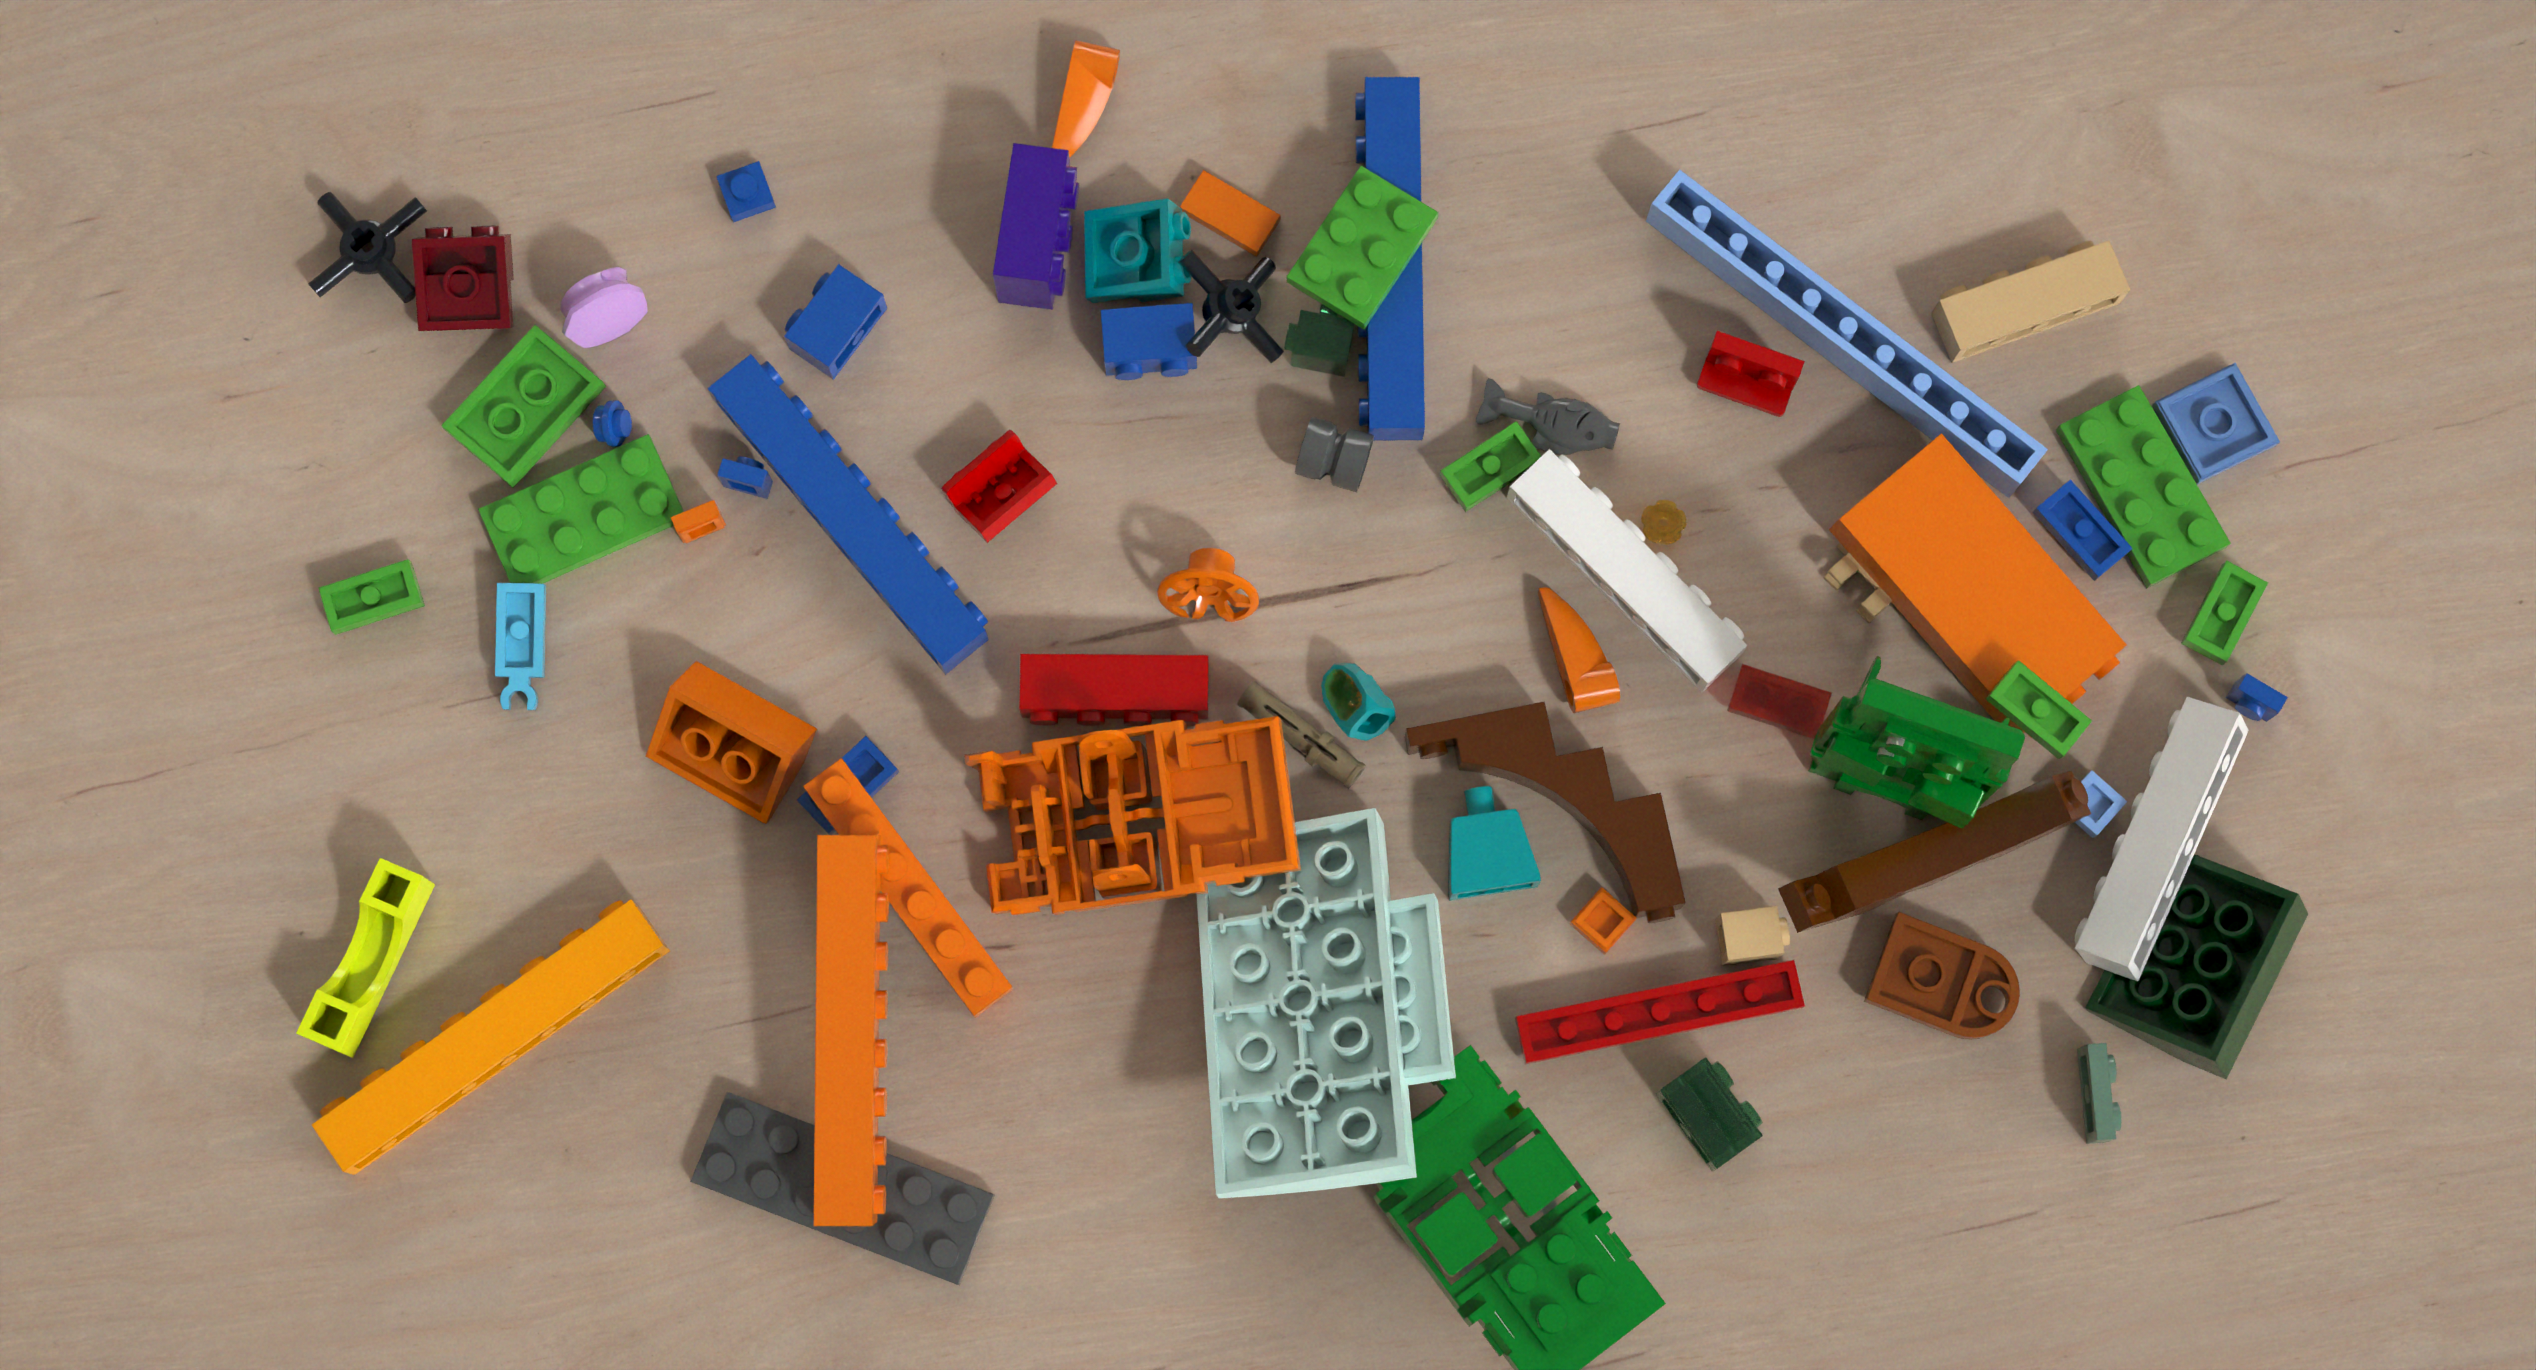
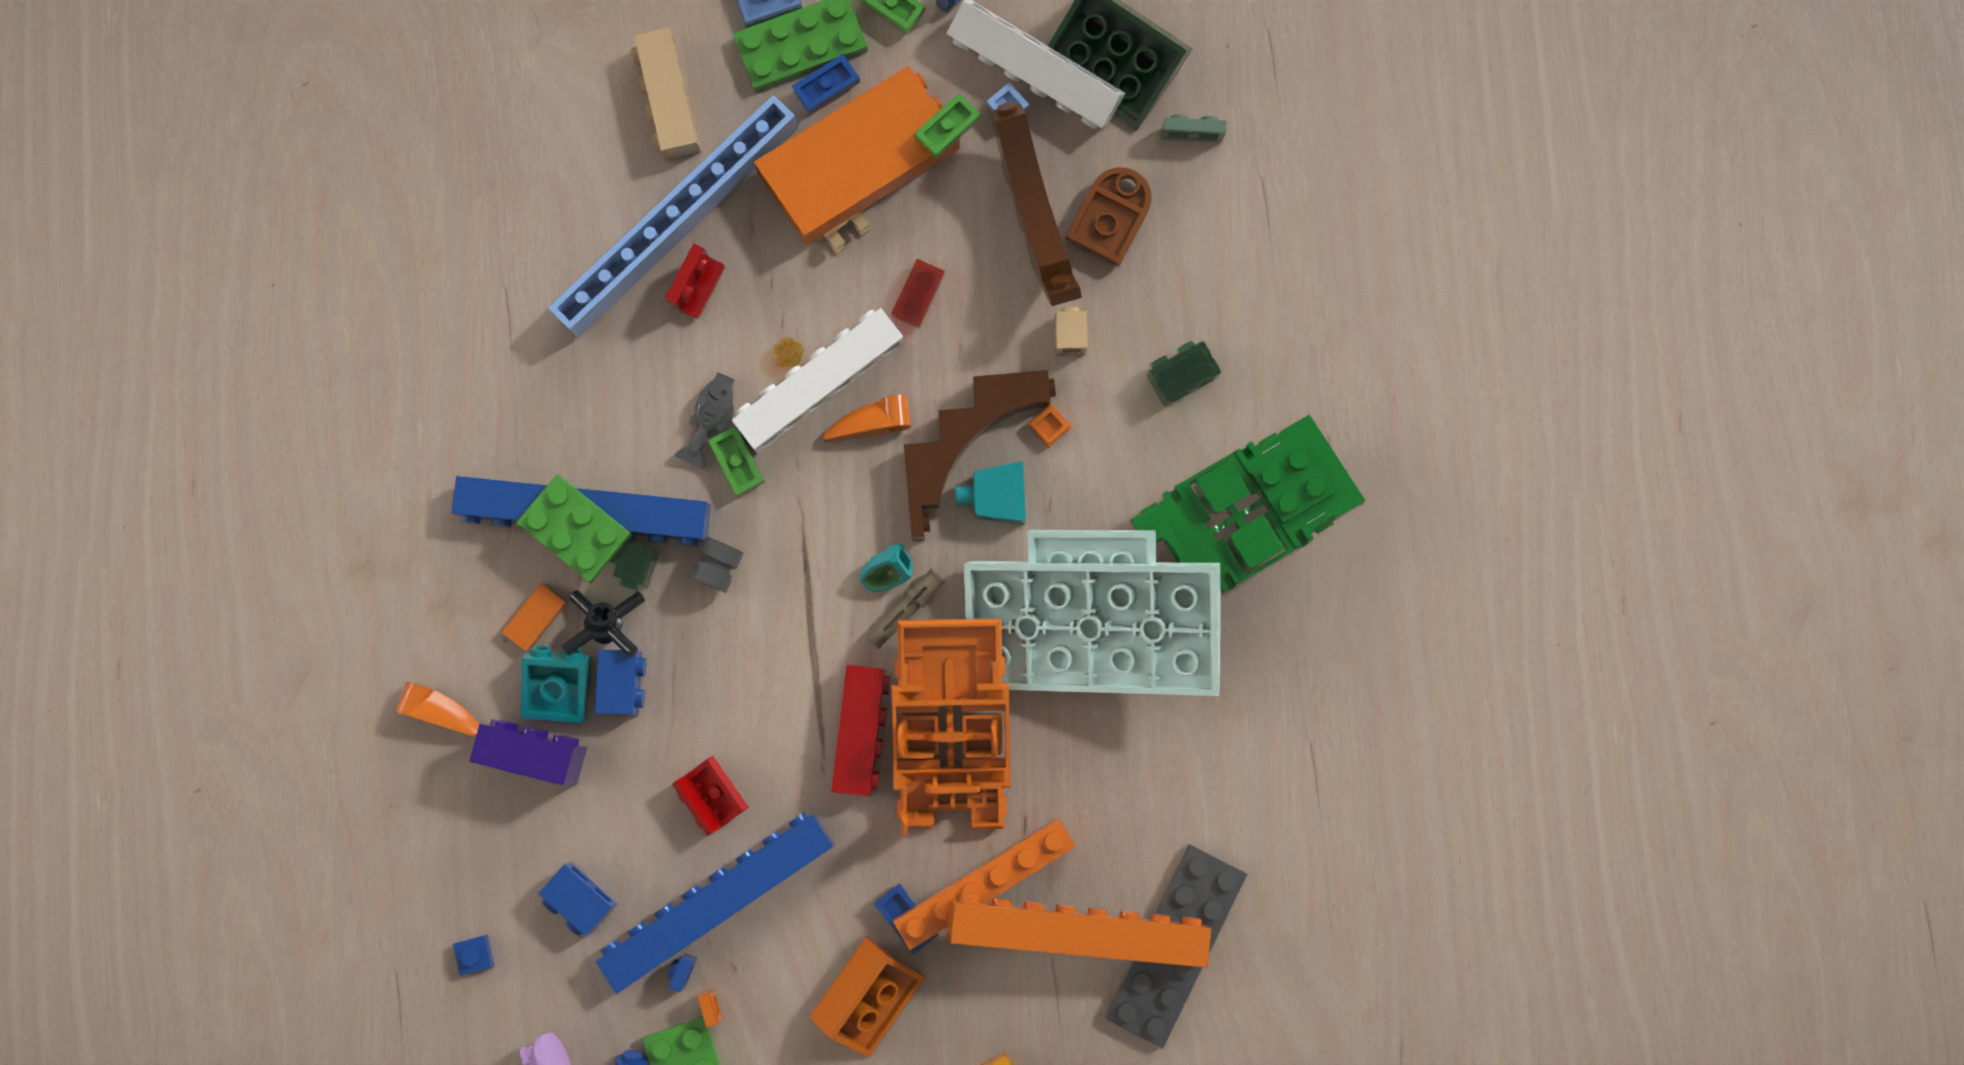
camera: 85 degrees left, 5 degrees up
(1209, 582) = (794, 659): orange wheel -> none
(1659, 1012) = (1114, 397): red plate -> none
(1914, 751) = (977, 201): green piece -> none

